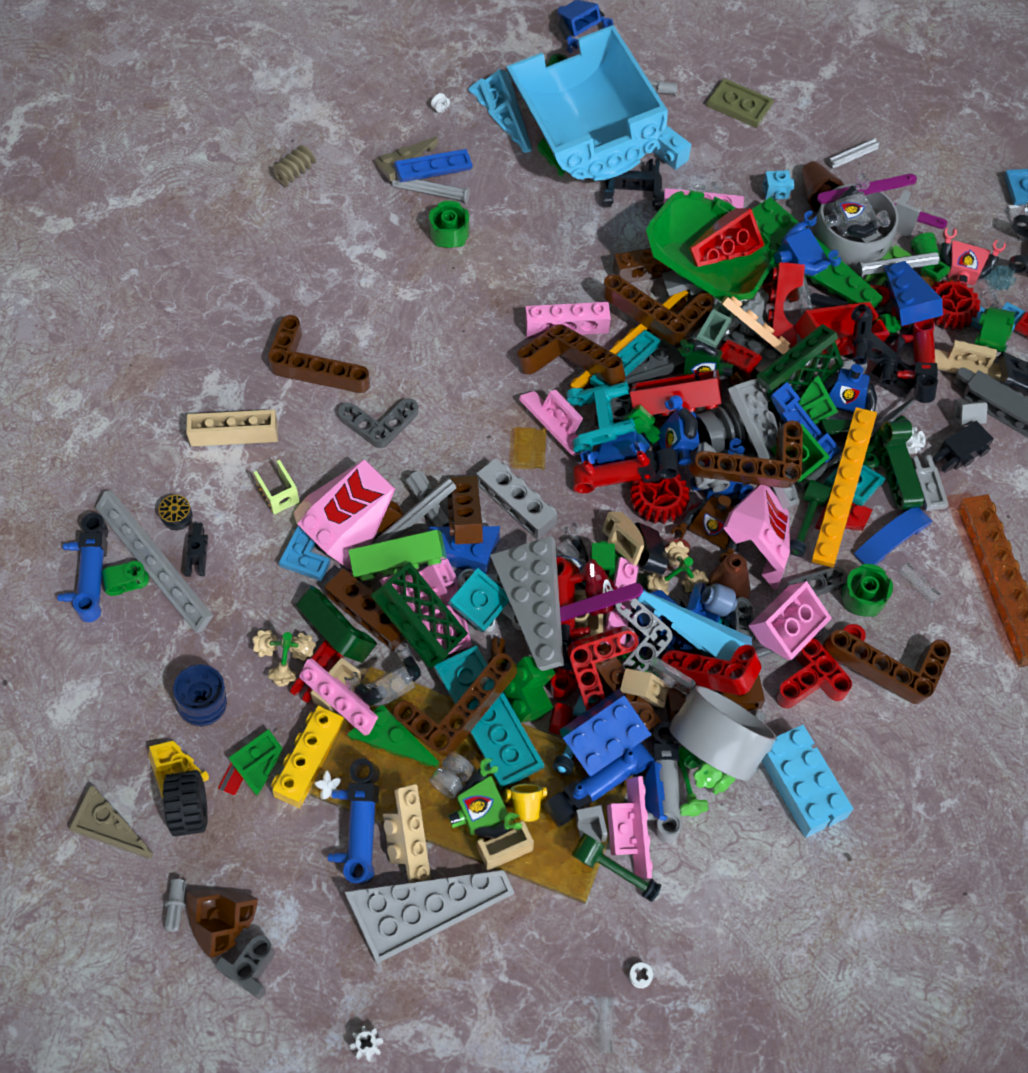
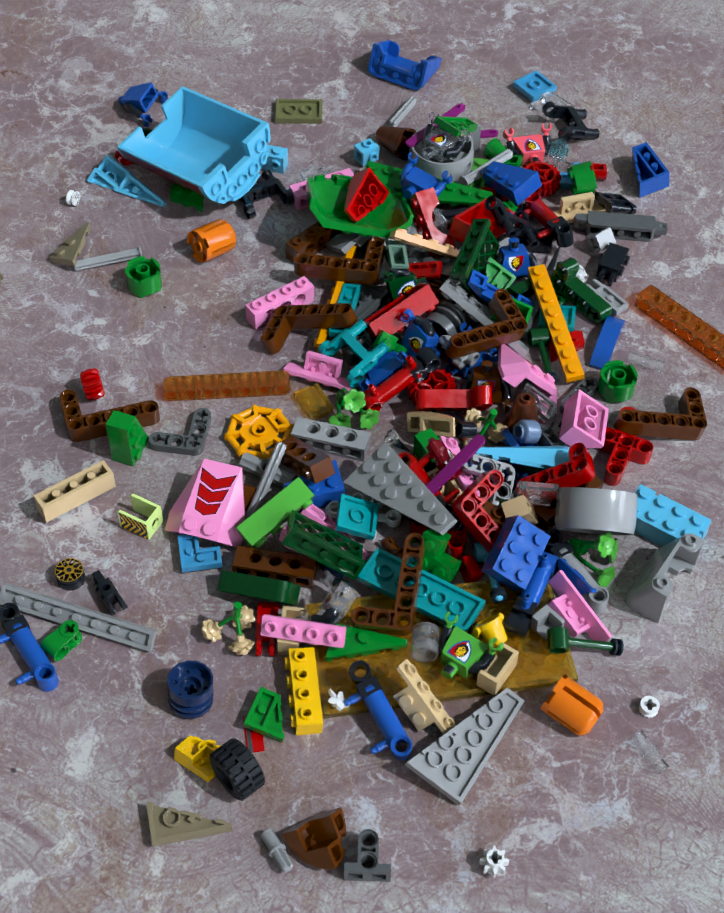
camera: 30 degrees left, 10 degrees down
(311, 397) = (125, 438): none -> green wedge
(322, 320) = (92, 384): none -> red gear
(433, 165) = (100, 241): blue plate -> none
(453, 386) = (226, 385): none -> clear orange beam
(463, 448) = (248, 433): none -> light orange plate
(543, 924) = (573, 706): none -> orange cylinder
(544, 215) = (212, 240): none -> orange cylinder
(556, 471) = (353, 401): none -> bright green plant
(665, 521) = (454, 399): none -> red beam
(725, 848) = (652, 587): none -> light grey windscreen
(758, 581) = (545, 407): none -> clear slope
(880, 198) = (455, 124): none -> green wing
(884, 99) = (391, 67): none -> blue windscreen

